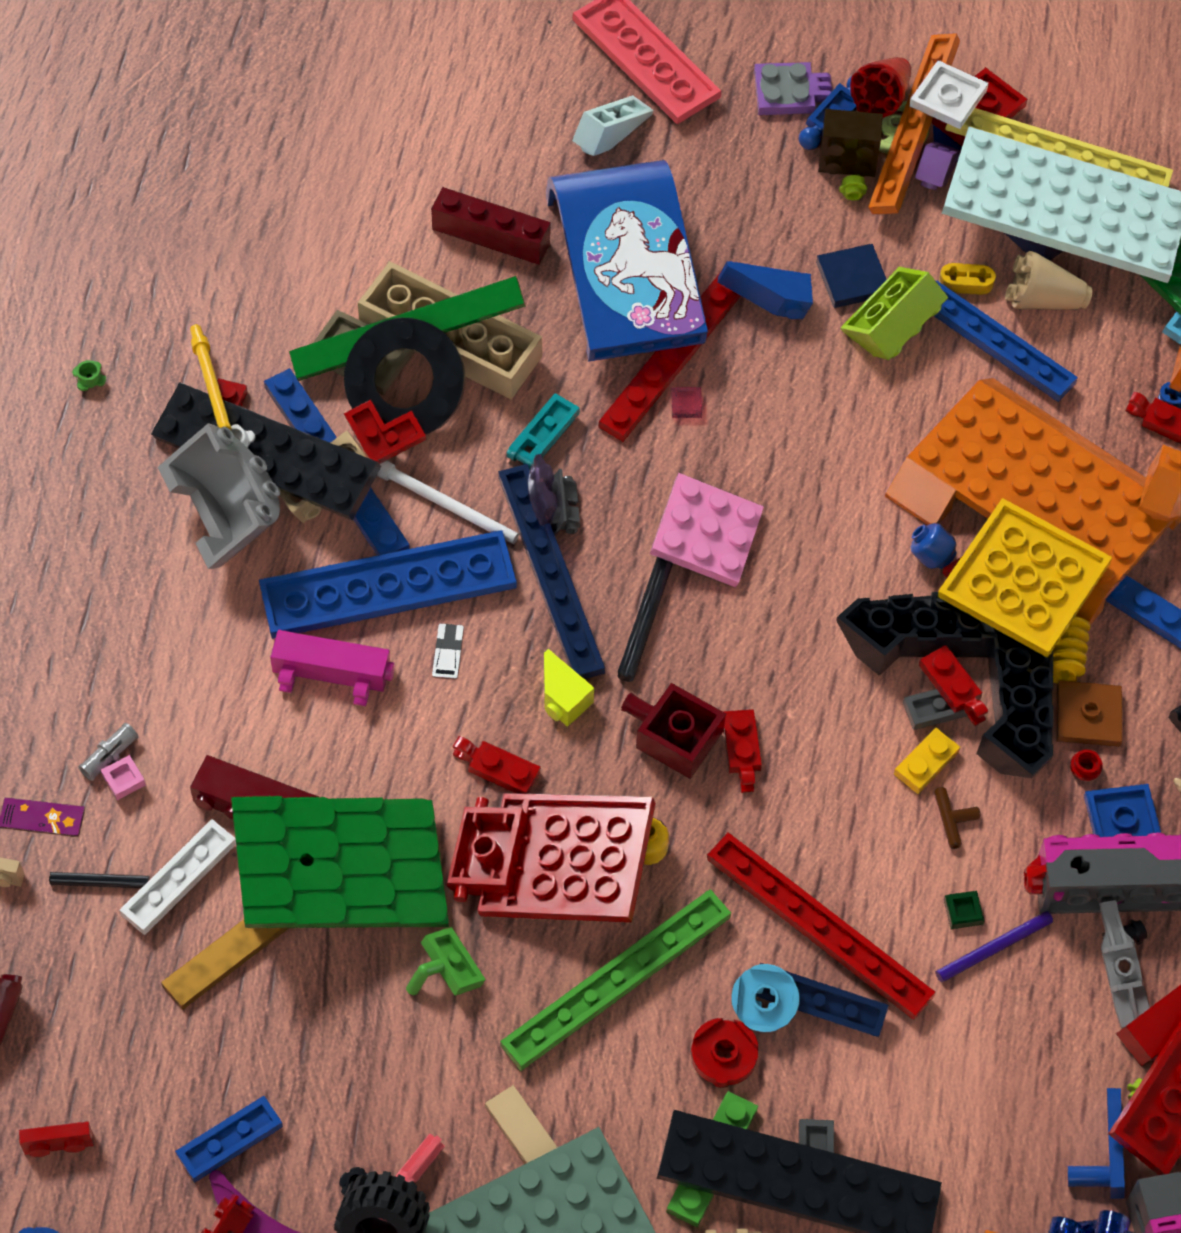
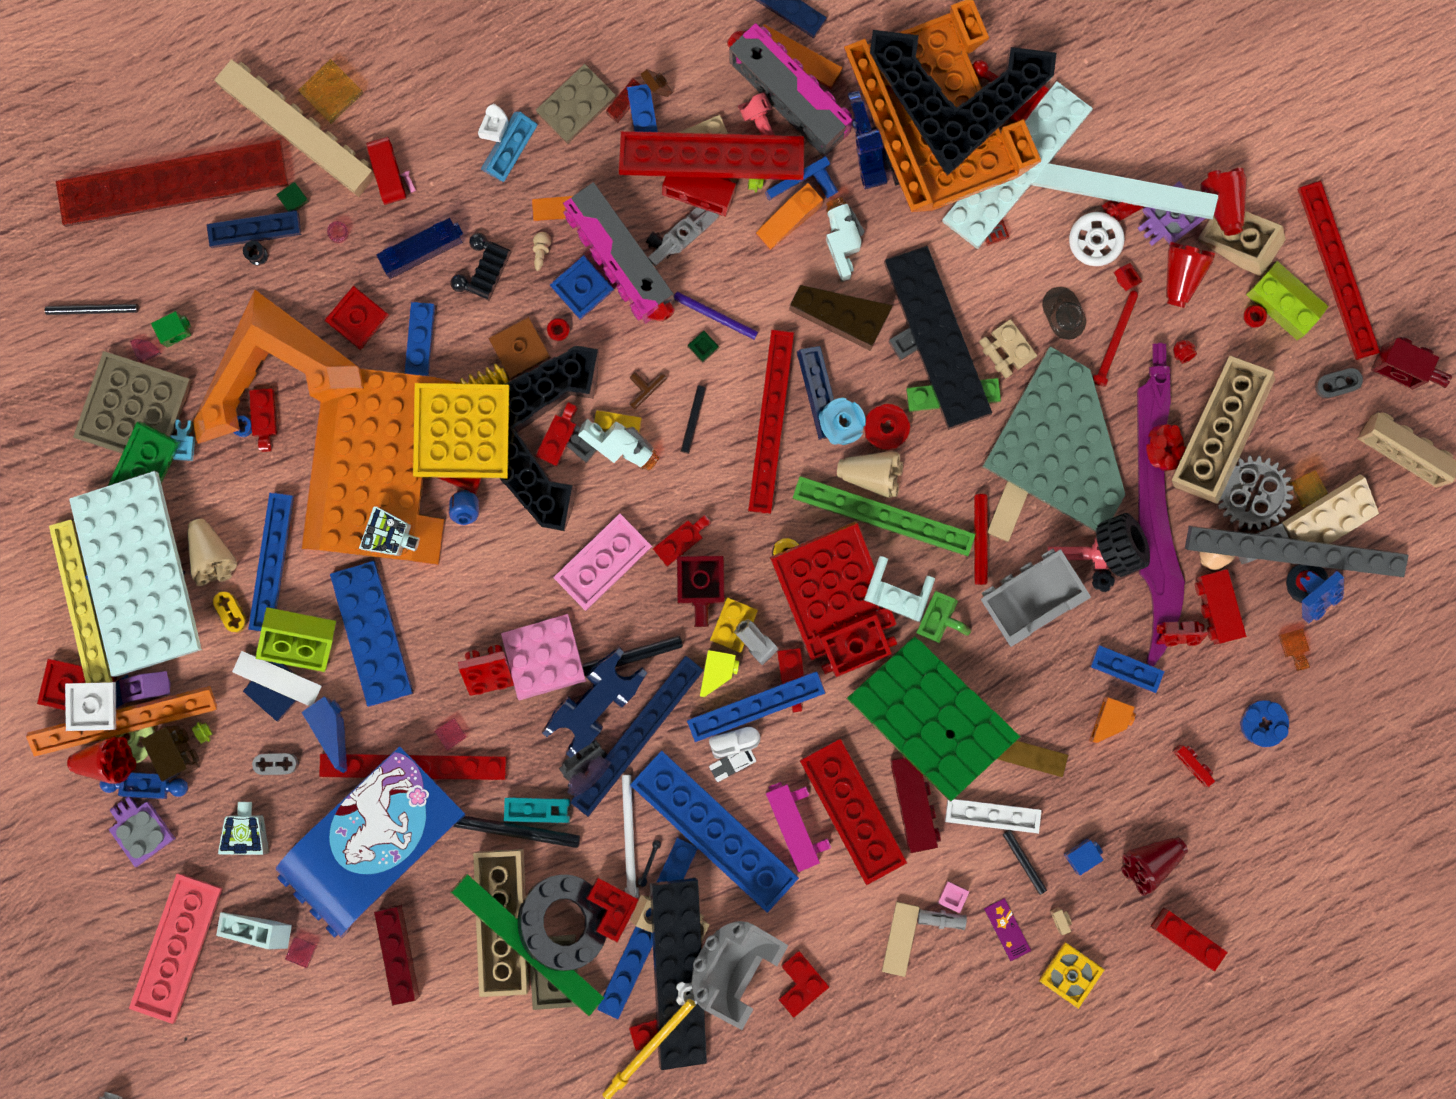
camera: 115 degrees left, 25 degrees up
(53, 943) = (1084, 856): none -> blue brick
(122, 698) = (900, 939): none -> tan tile
(152, 579) = (808, 984): none -> red plate
(183, 1080) = (1112, 719): none -> orange slope
(299, 733) = (853, 811): none -> red plate
(389, 487) = (642, 881): none -> black hinge
(396, 1066) = (1034, 596): none -> light grey cylinder
(470, 659) = (734, 742): none -> white arm
(492, 702) = (756, 706): none -> blue plate
(506, 922) = (896, 598): none -> light aqua plate
(510, 1074) = (981, 539): none -> red axle
(532, 405) = (519, 831): none -> black axle
(559, 153) = (301, 952): none -> clear pink tile
(559, 749) = (759, 645): none -> light grey piece
(604, 743) = (731, 615): none -> yellow plate
(626, 568) = (606, 688): none -> dark blue piece
(676, 997) = (873, 472): none -> tan cone
(719, 166) = (244, 833): none -> torso
(730, 459) = (485, 672): none -> red plate
(773, 651) = (602, 562): none -> bright pink plate
(777, 235) = (275, 769): none -> light grey beam
(851, 390) = (371, 633): none -> blue plate
(861, 278) = (276, 679): none -> white sticker
(880, 845) = (693, 419): none -> black bar
(898, 1086) = (842, 314): none -> dark brown wedge
(904, 739) = (620, 441): none -> light aqua plate
(952, 441) = (387, 534): none -> torso
(1000, 1154) = (846, 235): none -> light aqua plate
(1070, 1108) = (790, 216): none -> orange slope

